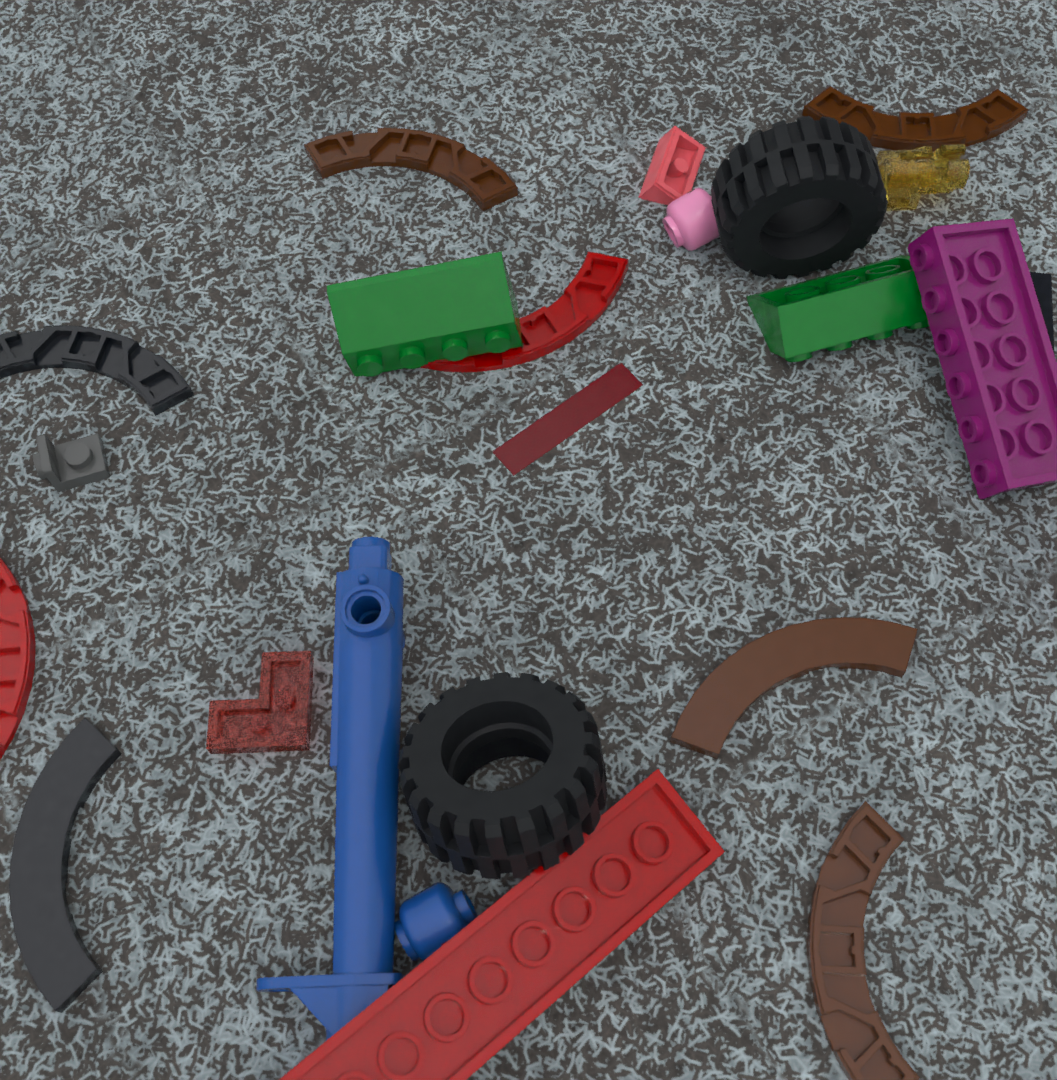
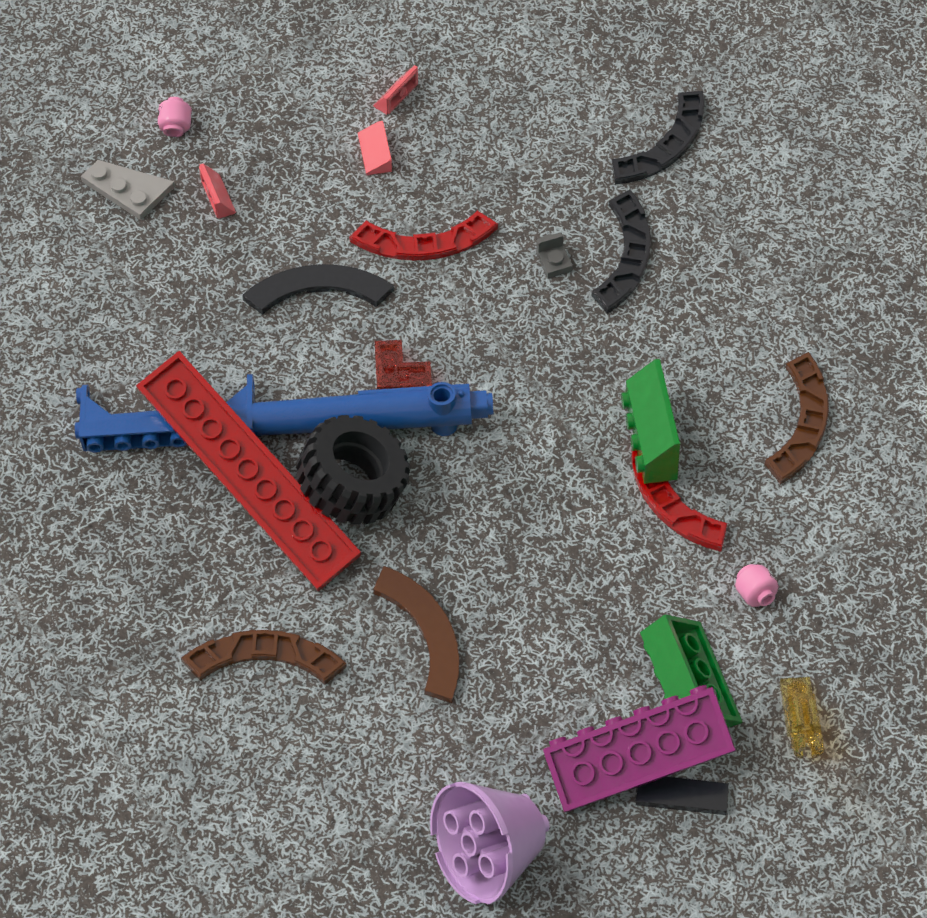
camera: 85 degrees right, 5 degrees down
(432, 919) = (283, 448): blue head -> none
(567, 418) = (599, 517): dark red sticker -> none
(672, 167) = (808, 579): coral slope -> none
(798, 197) = (748, 624): black tyre -> none
(914, 130) = (860, 747): reddish brown tile -> none

